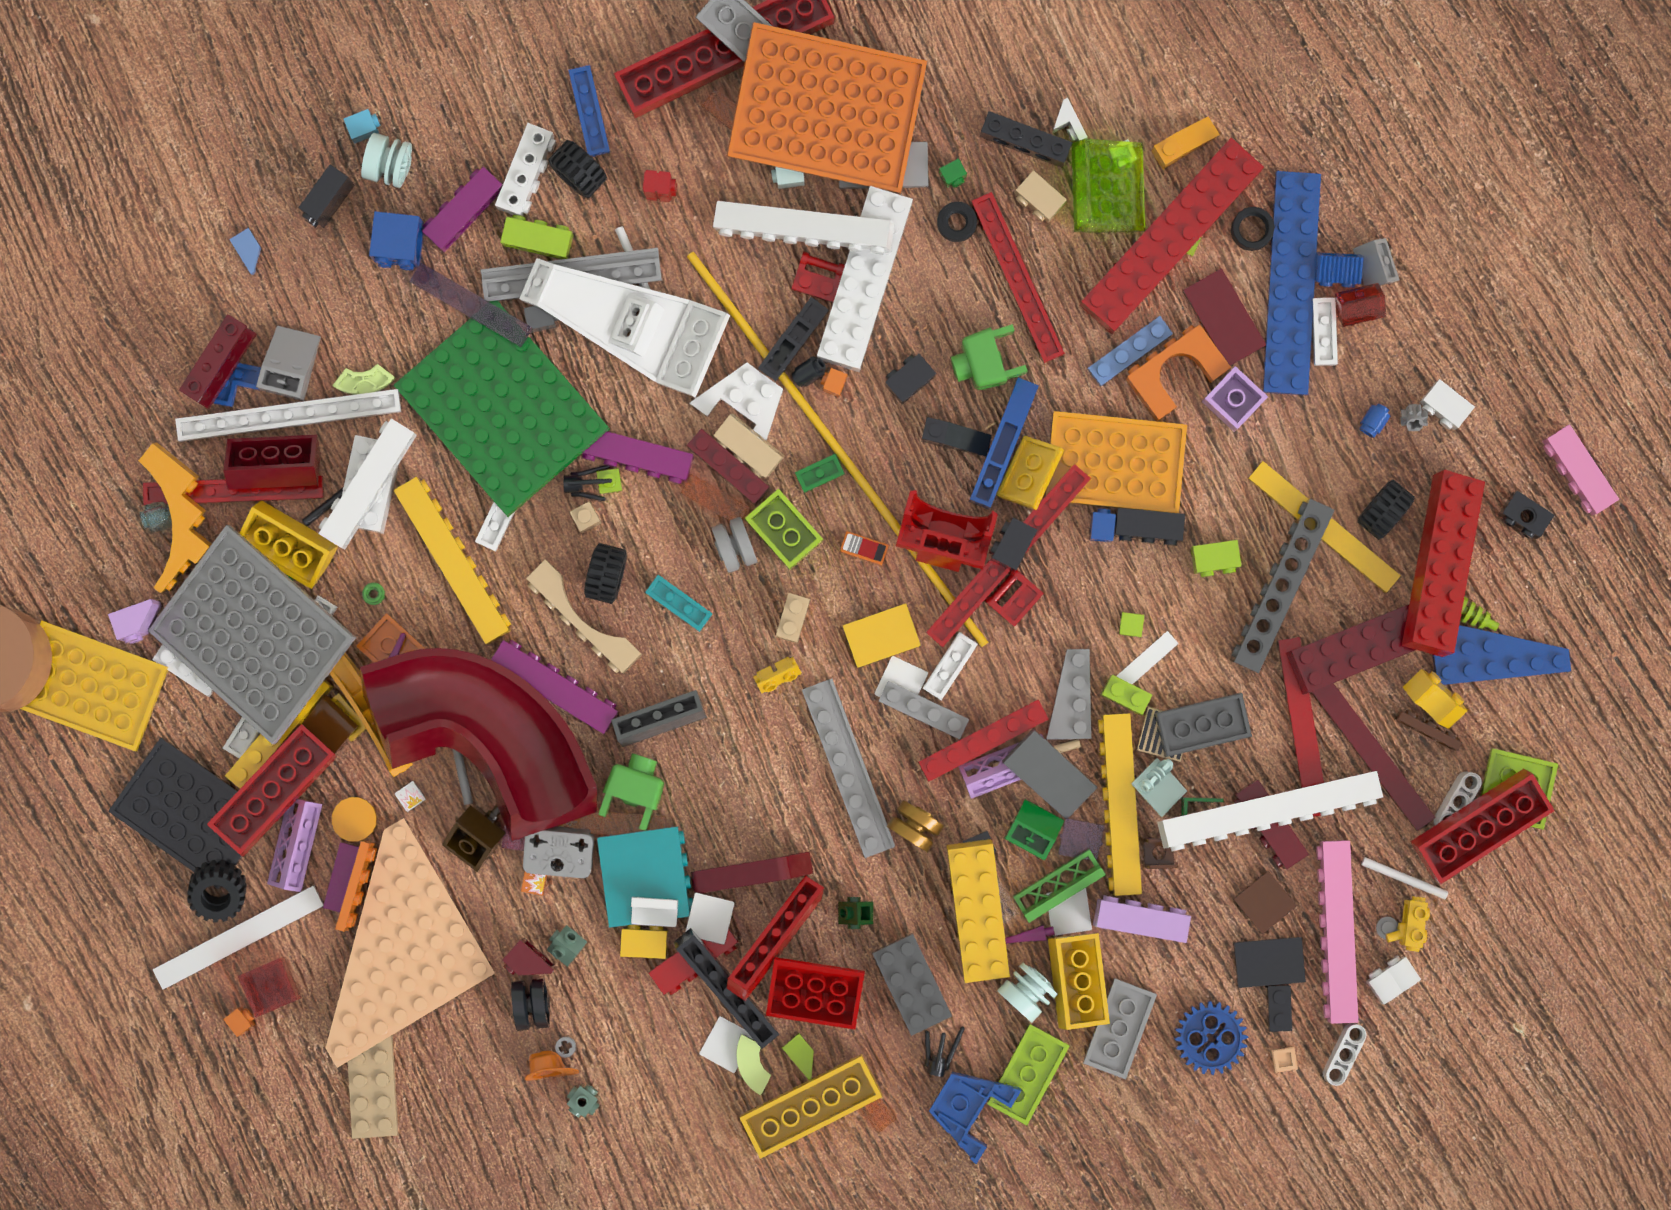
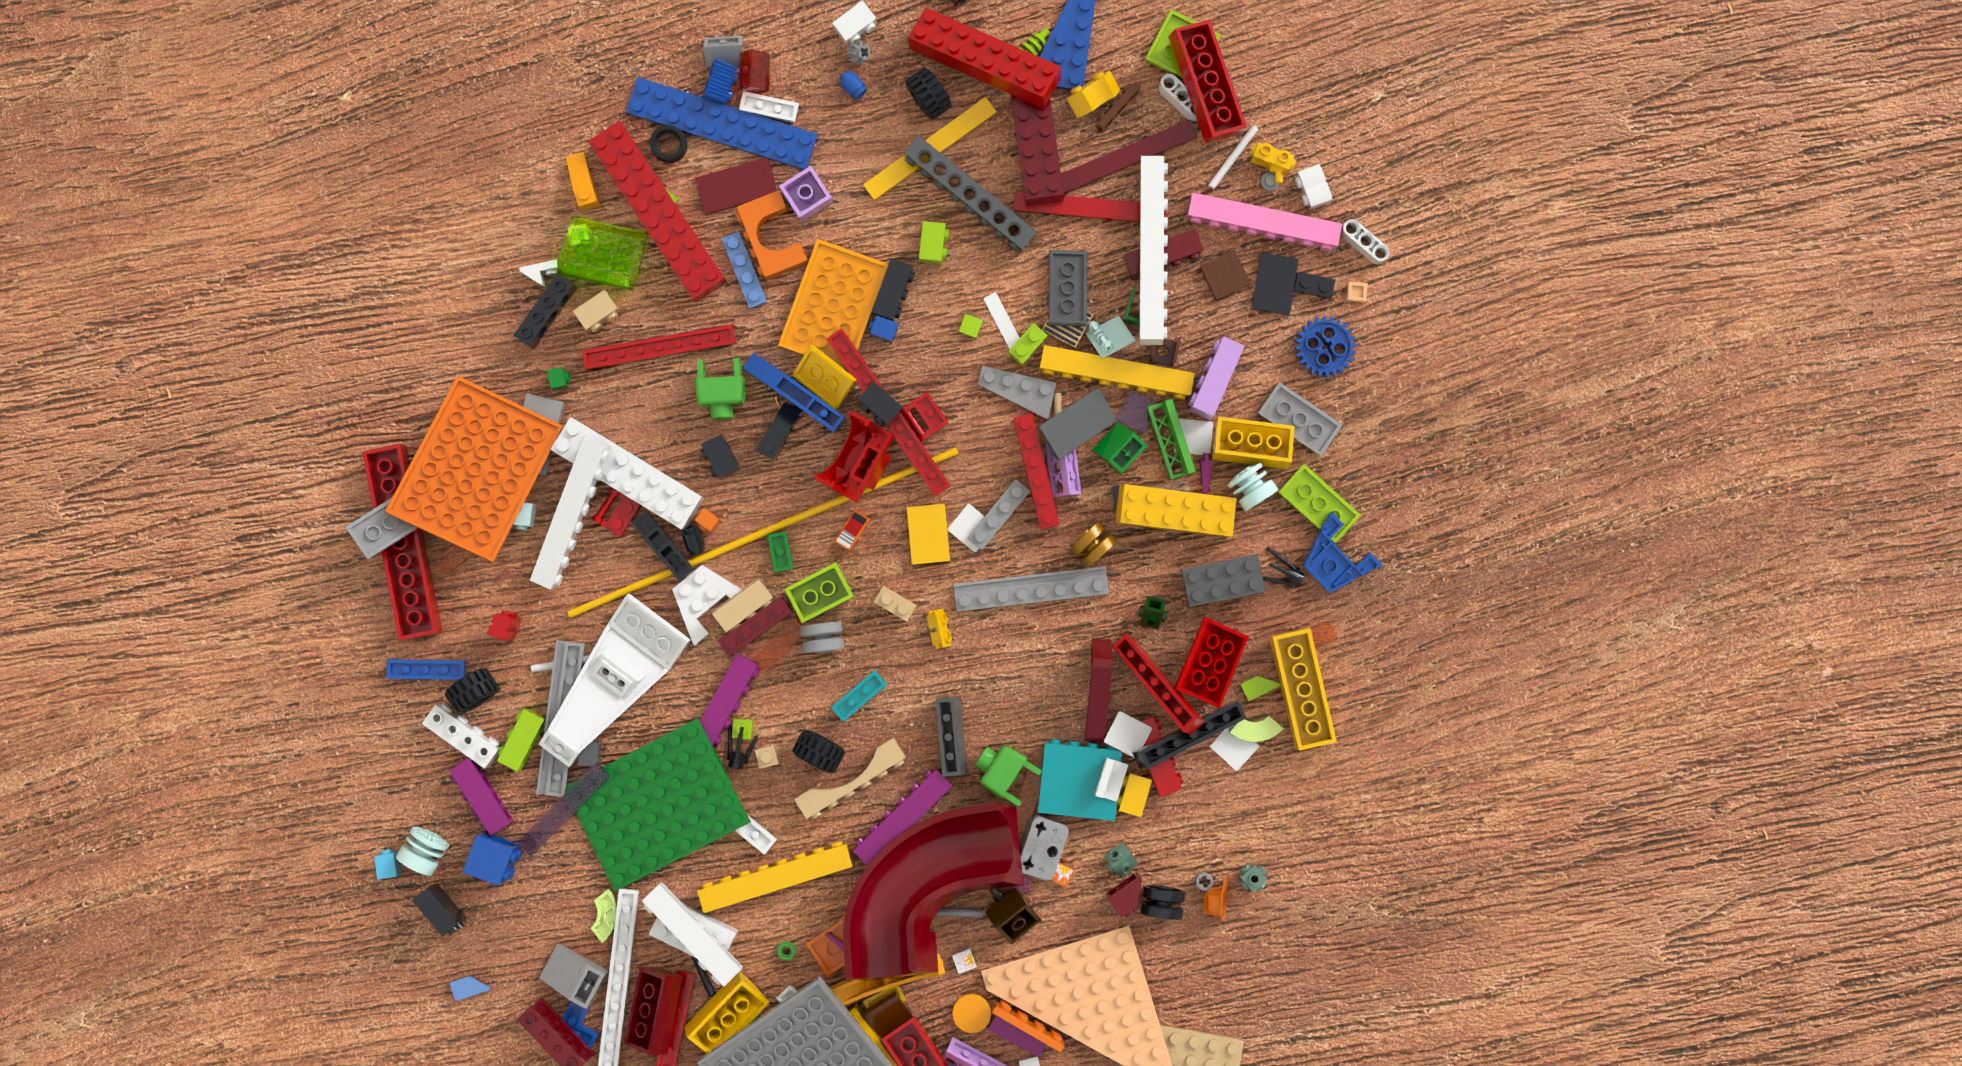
camera: 75 degrees left, 0 degrees up
(950, 666) = (967, 483): white tile -> none
(956, 235) = (588, 381): black tyre -> none

